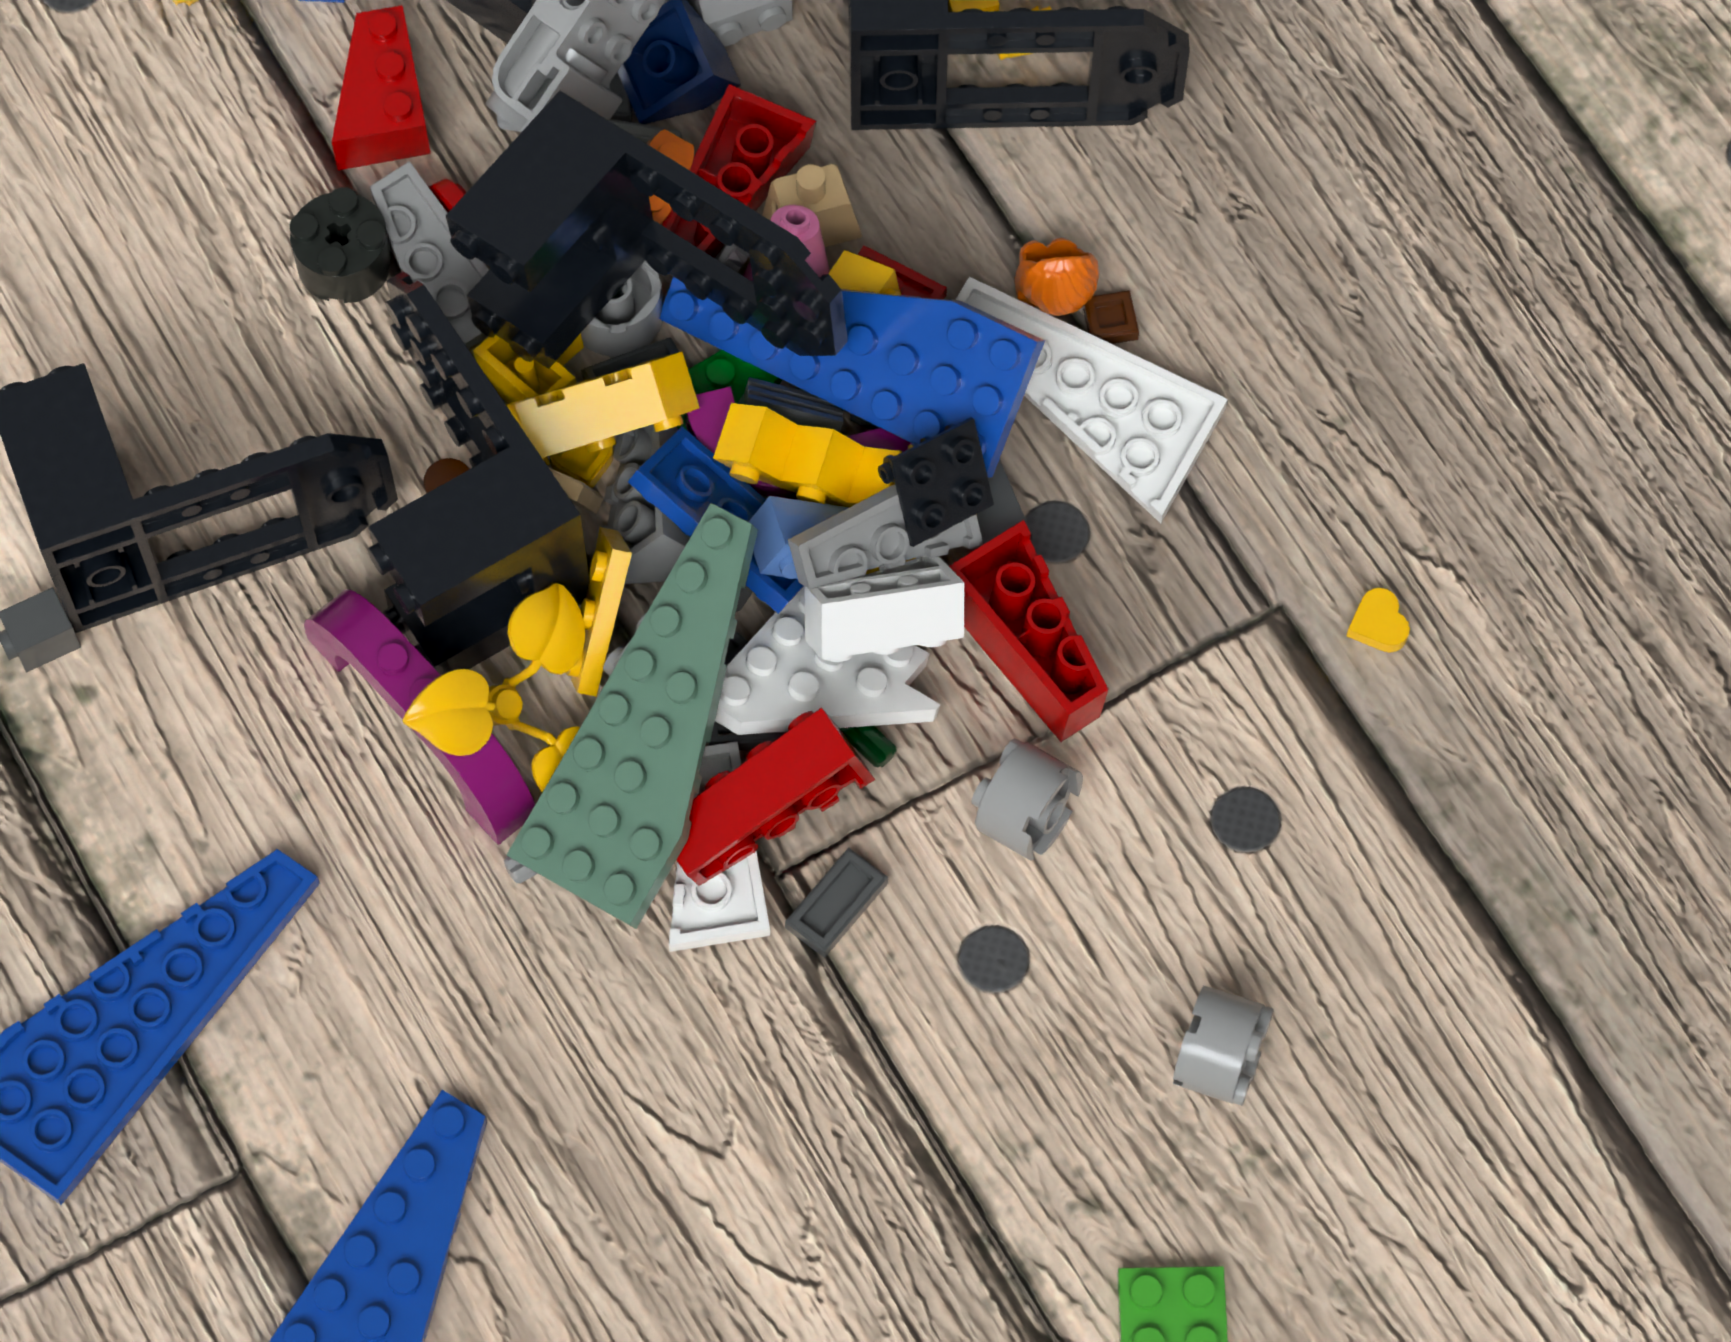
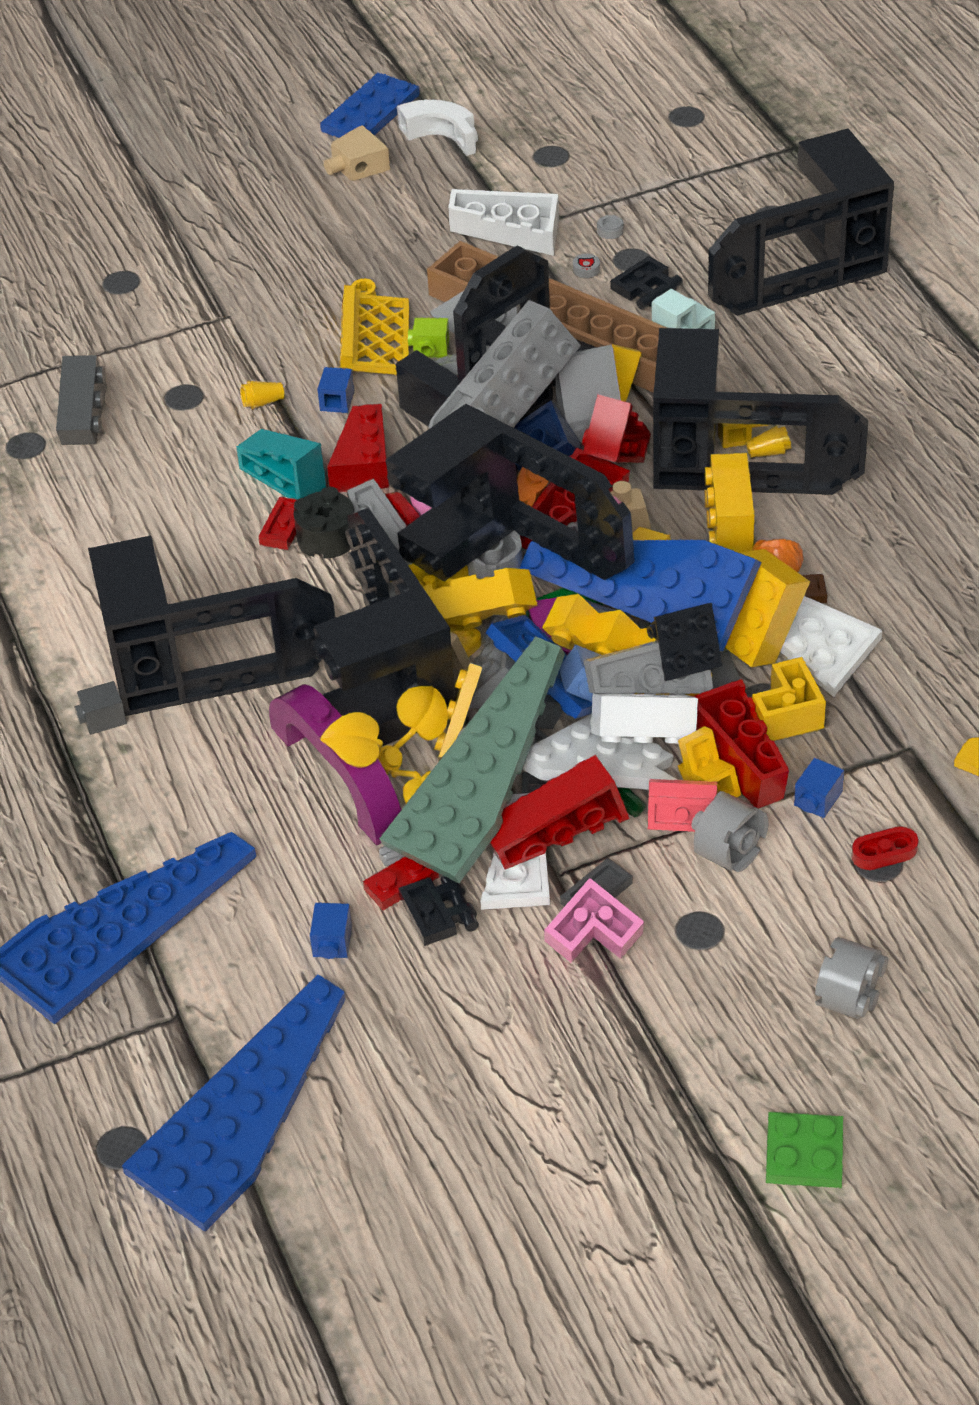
camera: 10 degrees right, 20 degrees down
(256, 129) = (283, 463): none -> teal wedge
(268, 250) = (280, 525): none -> red plate
(452, 1014) = (331, 930): none -> blue brick
(535, 915) = (384, 885): none -> red plate
(593, 966) = (429, 913): none -> black plate
(787, 66) = (616, 432): none -> red wedge
(836, 965) = (590, 915): none -> bright pink brick
(950, 751) = (676, 802): none -> coral plate
(978, 180) = (729, 502): none -> yellow brick
(984, 689) = (703, 762): none -> yellow brick
(1060, 391) = (767, 611): none -> yellow brick
(1107, 549) = (793, 702): none -> yellow brick
(1151, 701) = (819, 787): none -> blue brick
(1251, 799) = (882, 850): none -> red plate

